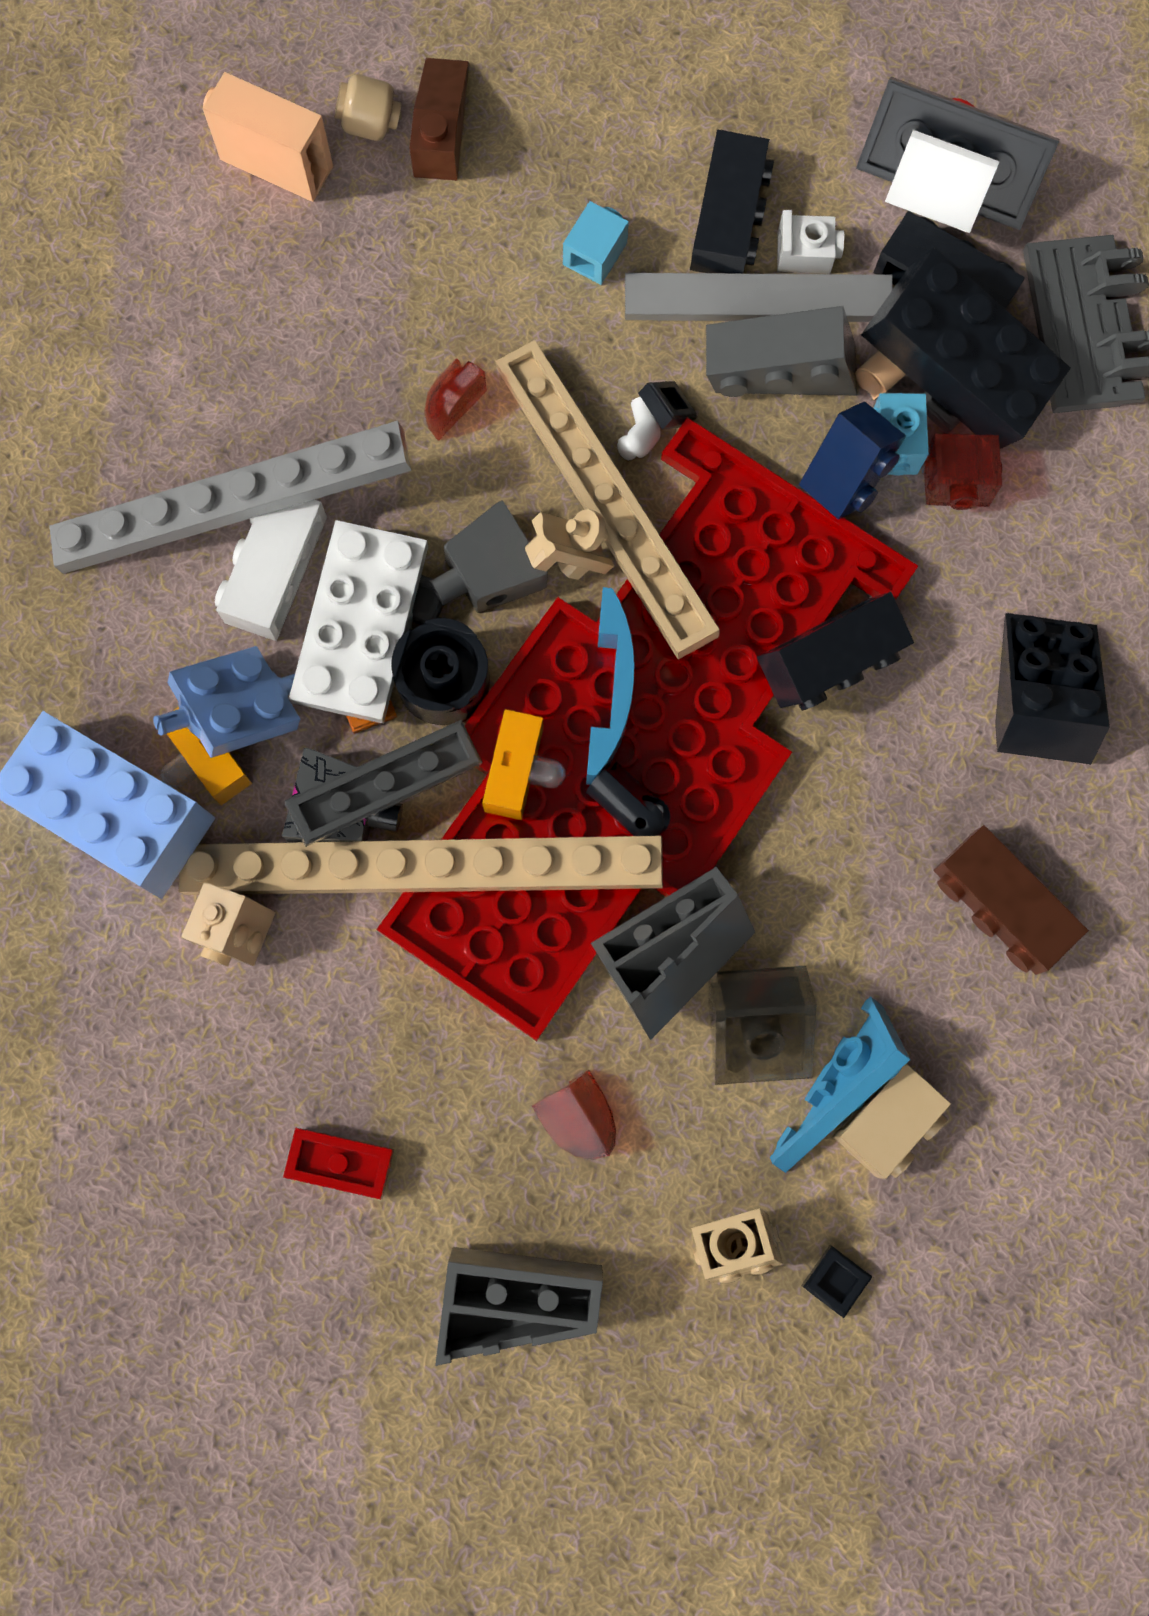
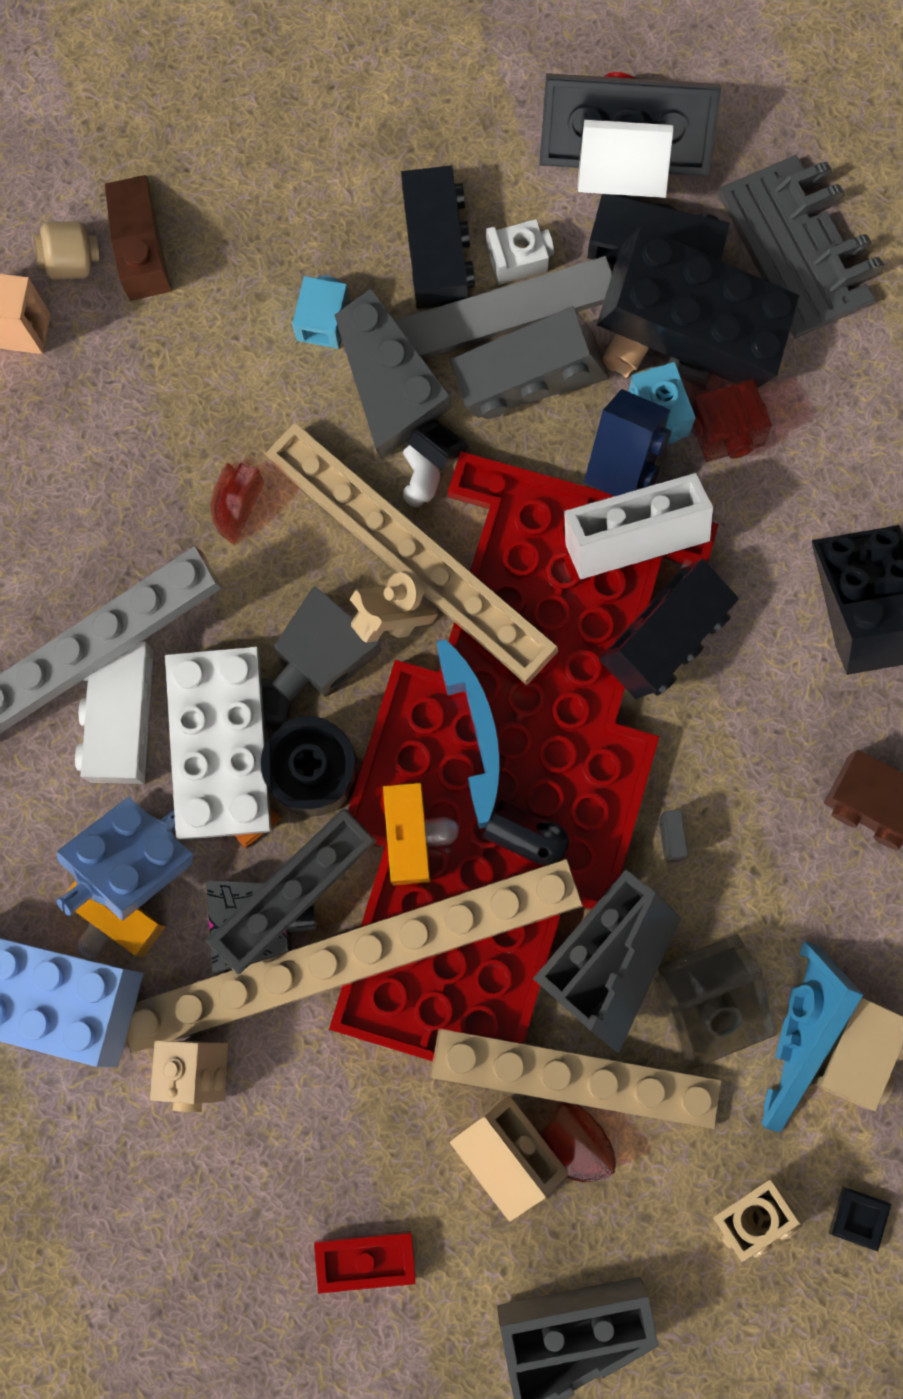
camera: 10 degrees left, 0 degrees up
(510, 1107) = (509, 1158): none -> tan brick
(601, 1053) = (575, 1078): none -> tan plate
(642, 320) = (389, 374): none -> dark grey wedge
(773, 852) = (673, 836): none -> dark grey tile
(837, 539) = (638, 525): none -> white brick

